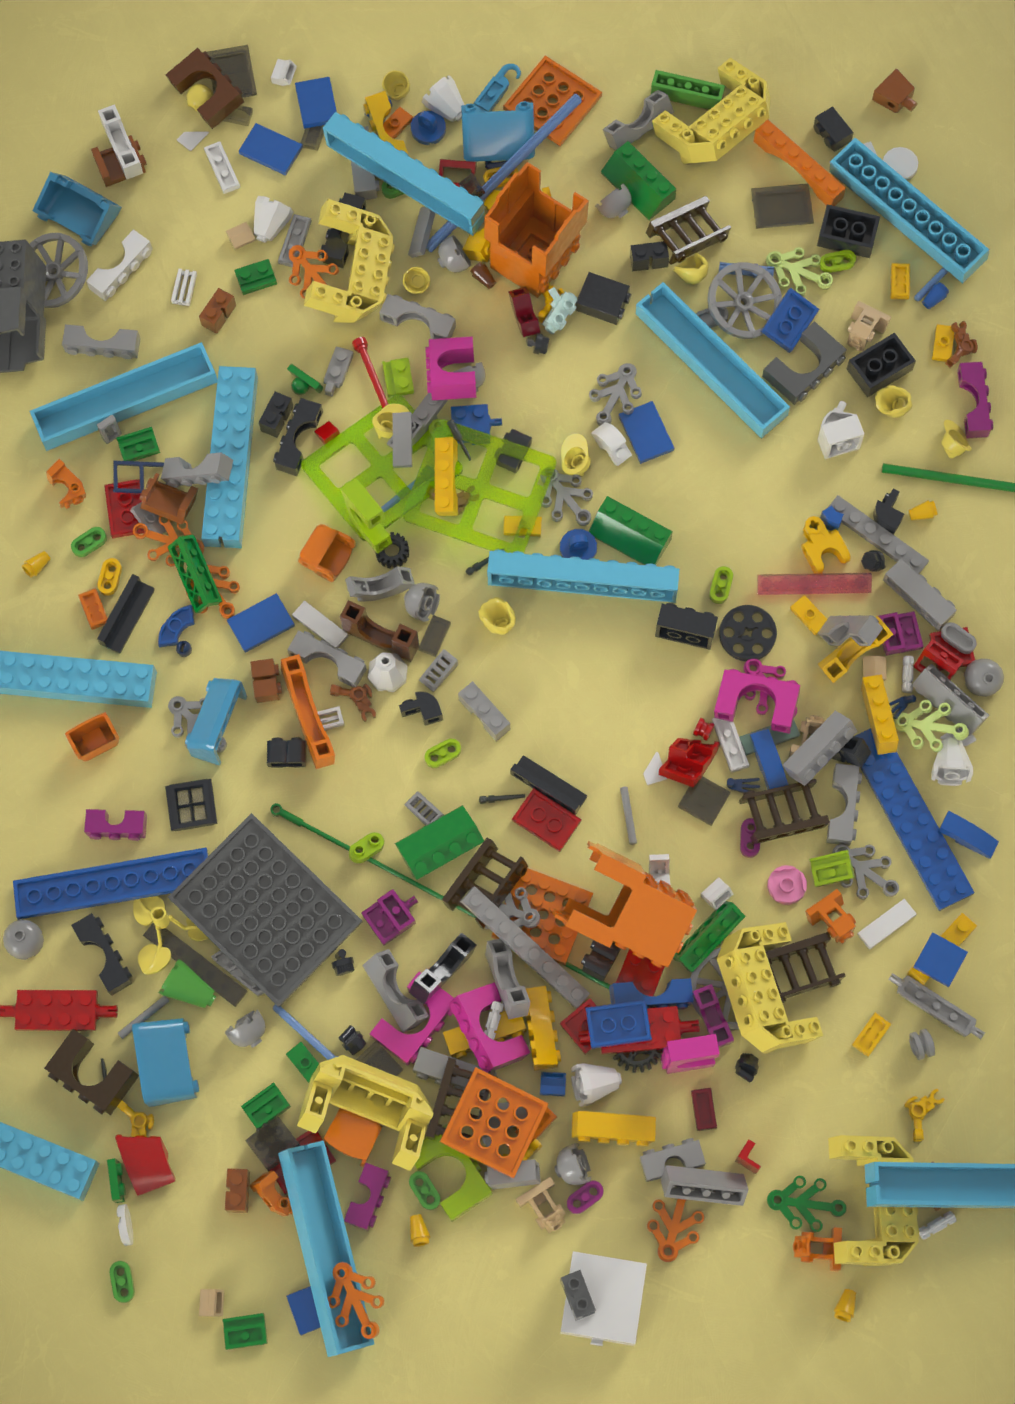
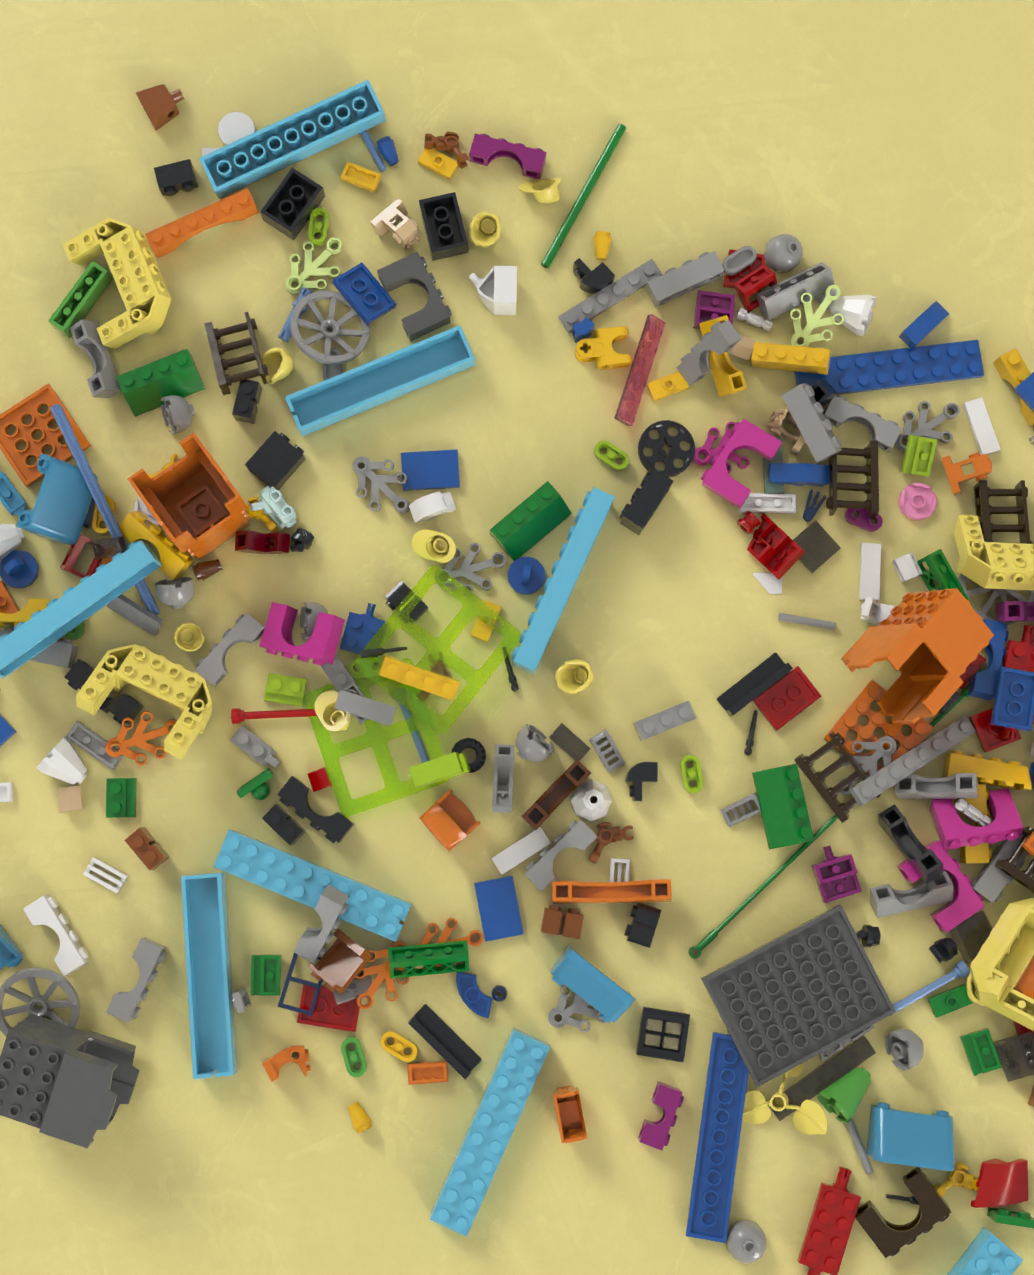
camera: 80 degrees left, 10 degrees up
(90, 933) = (762, 1171): black arch -> none
(367, 847) = (761, 877): lime plate -> none
(699, 860) = (870, 571): none -> white tile
(782, 206) = (239, 256): clear smoke piece -> none
(873, 561) = (636, 308): black piece -> none
(901, 706) = (781, 336): dark blue piece -> none

